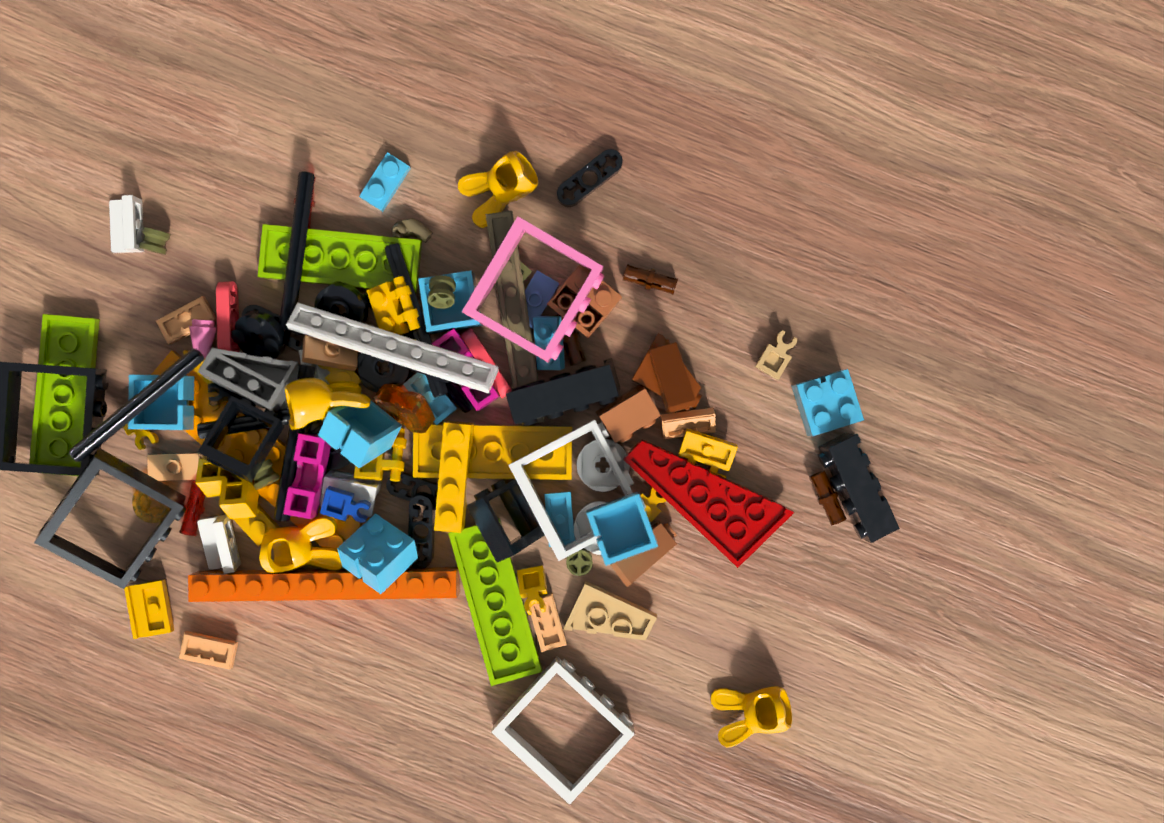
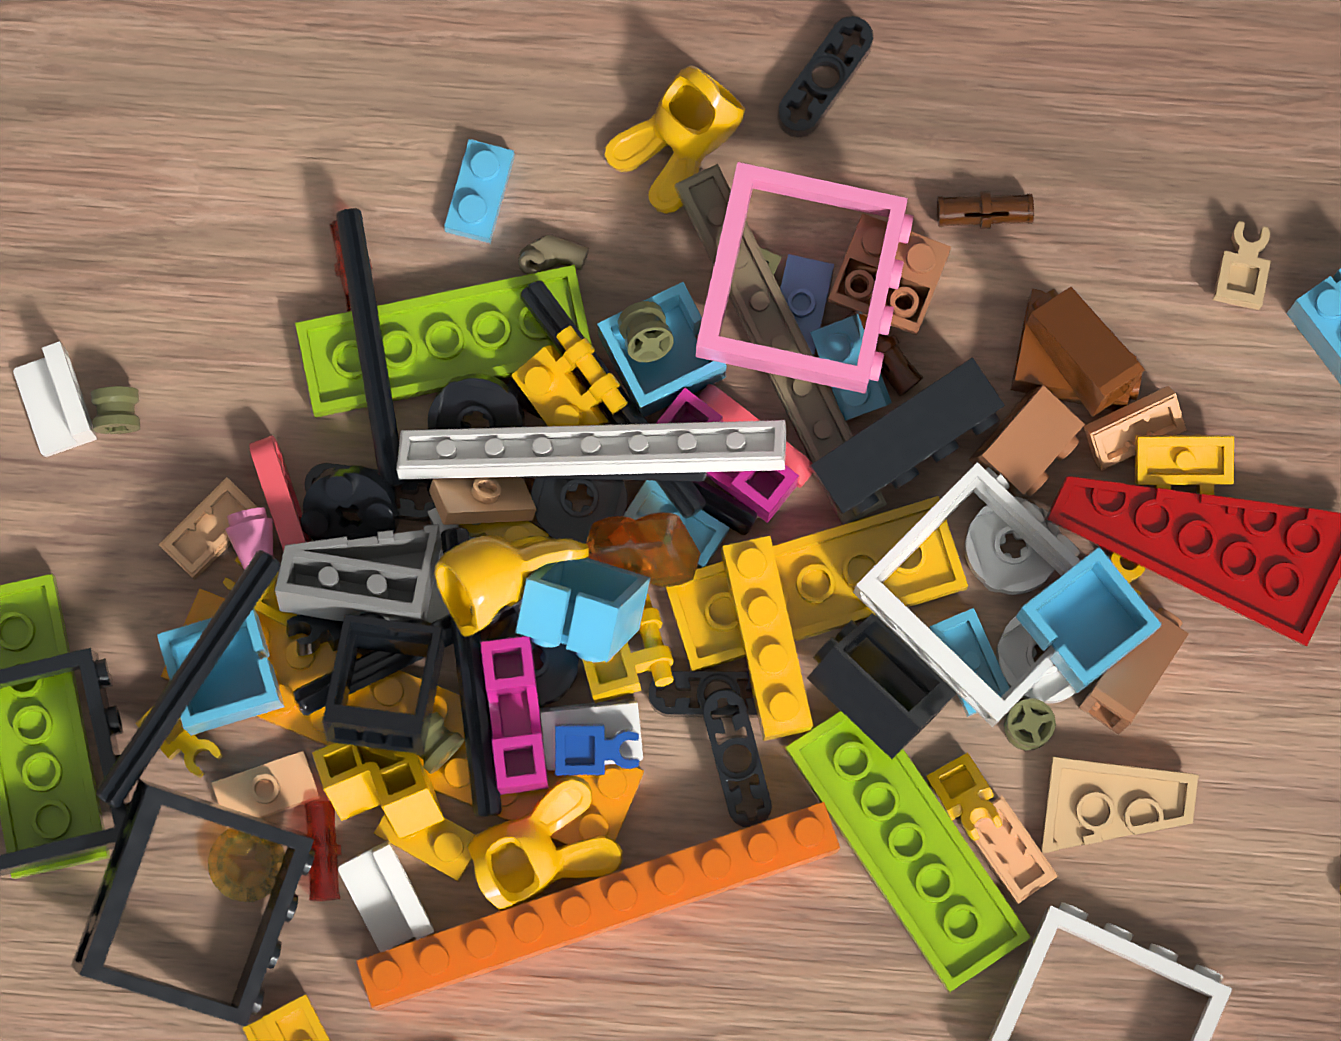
camera: 25 degrees left, 10 degrees down
(382, 553) = (690, 801): medium azure piece -> none

